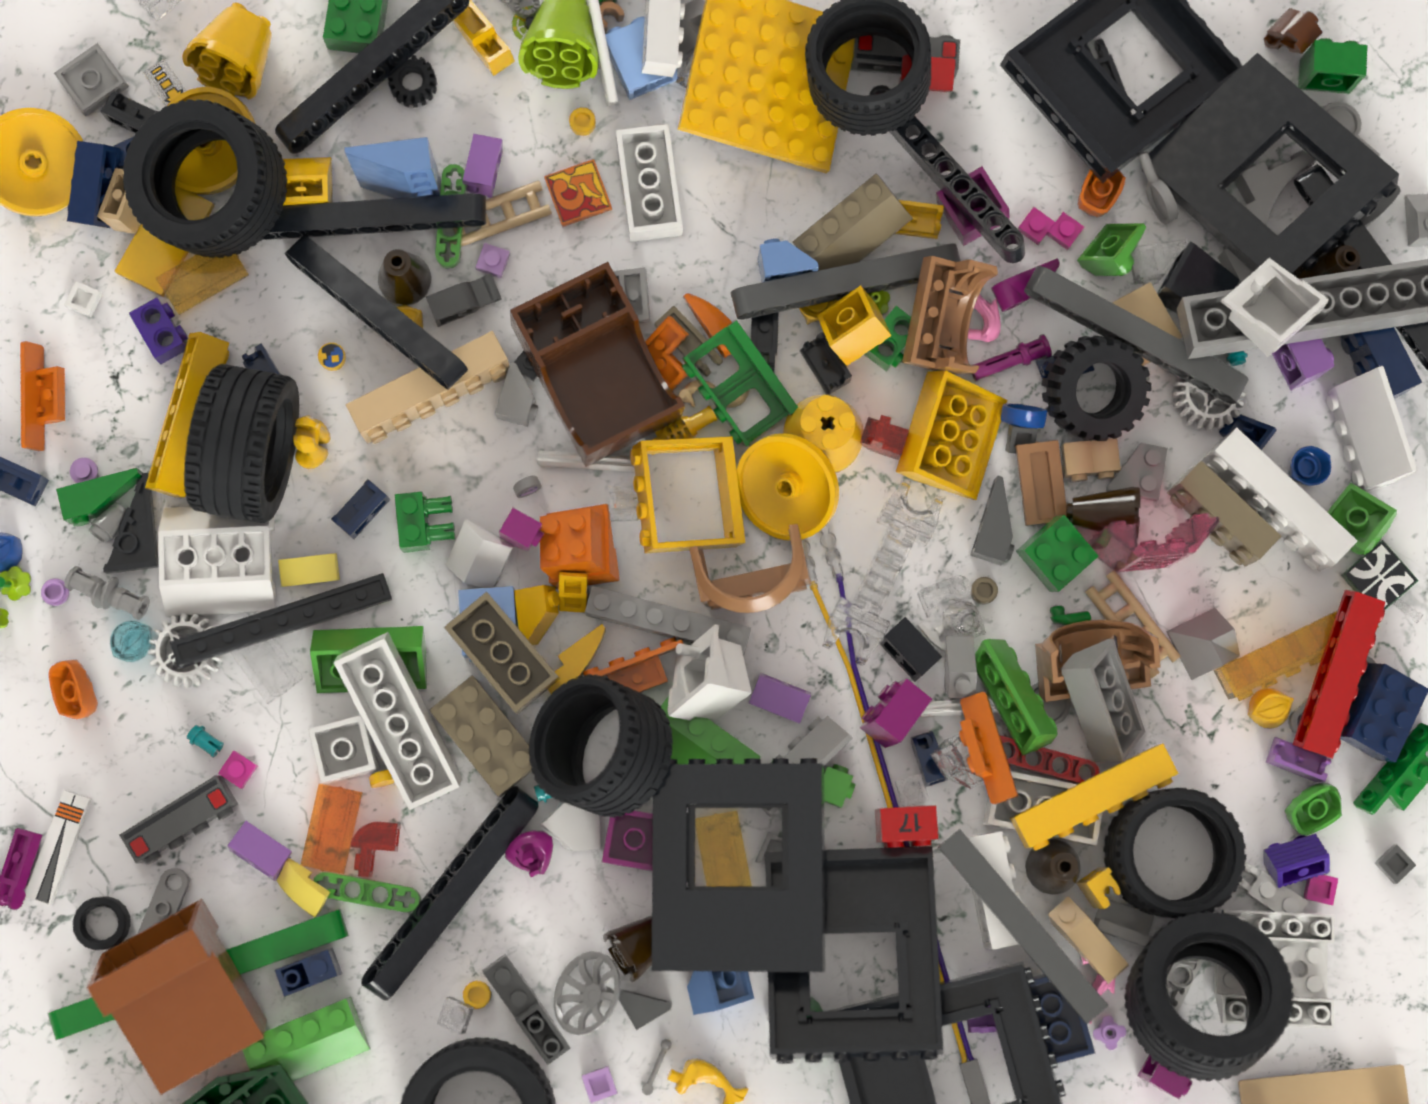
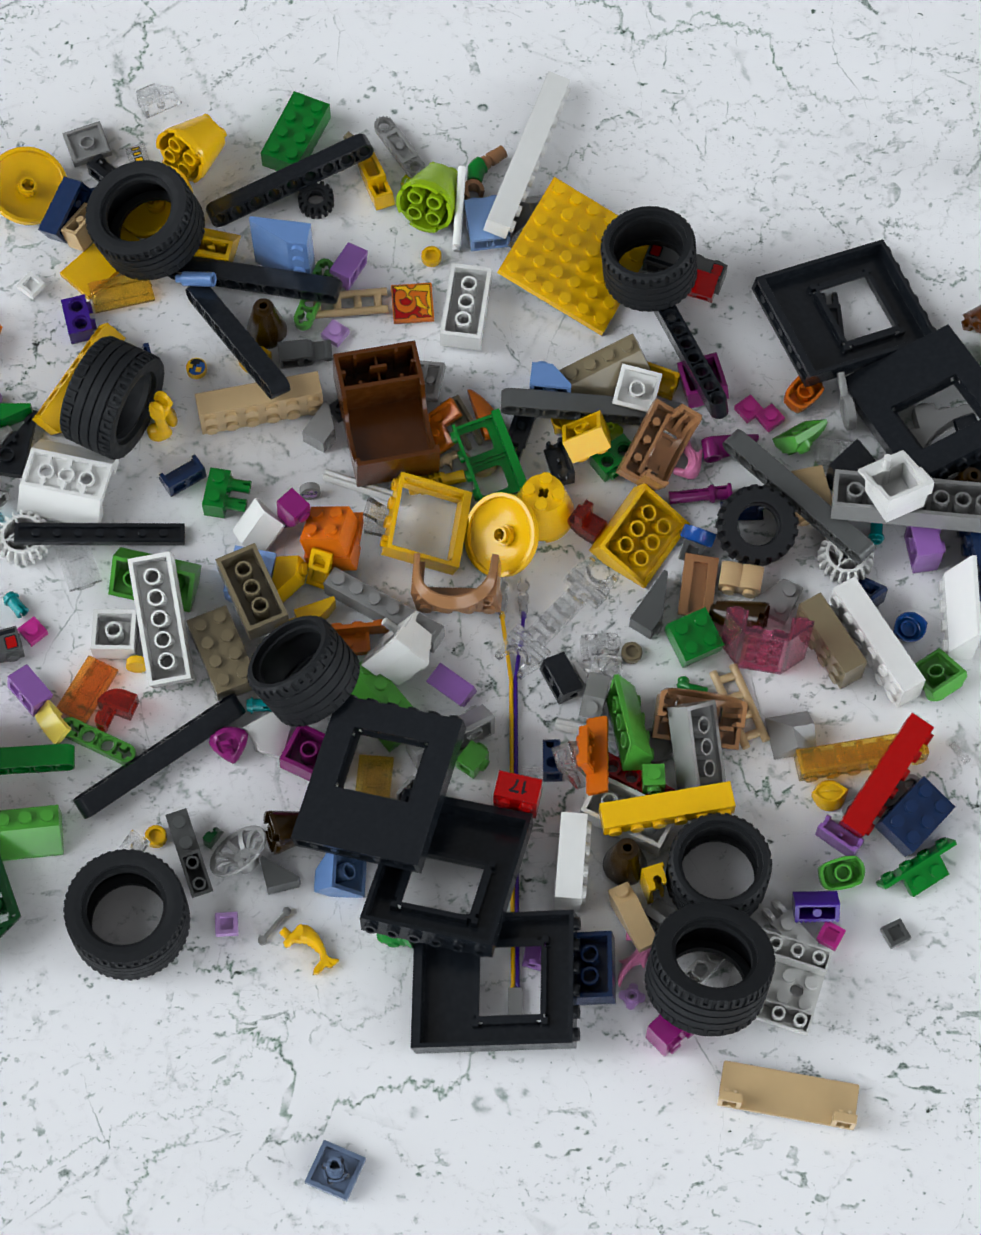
camera: 25 degrees right, 15 degrees down
(296, 238) = (199, 279): none -> medium blue cylinder
(308, 972) = (37, 782): dark blue slope -> none
(309, 569) = (131, 506): light yellow slope -> none
(547, 976) = (211, 838): none -> dark green tile
(895, 712) = (534, 713): magenta brick -> none
(898, 243) = (636, 388): none -> white slope
(1023, 926) = (583, 884): dark grey tile -> none
(1065, 761) = (653, 778): none -> bright green brick
(1380, 575) = (947, 721): tile -> none

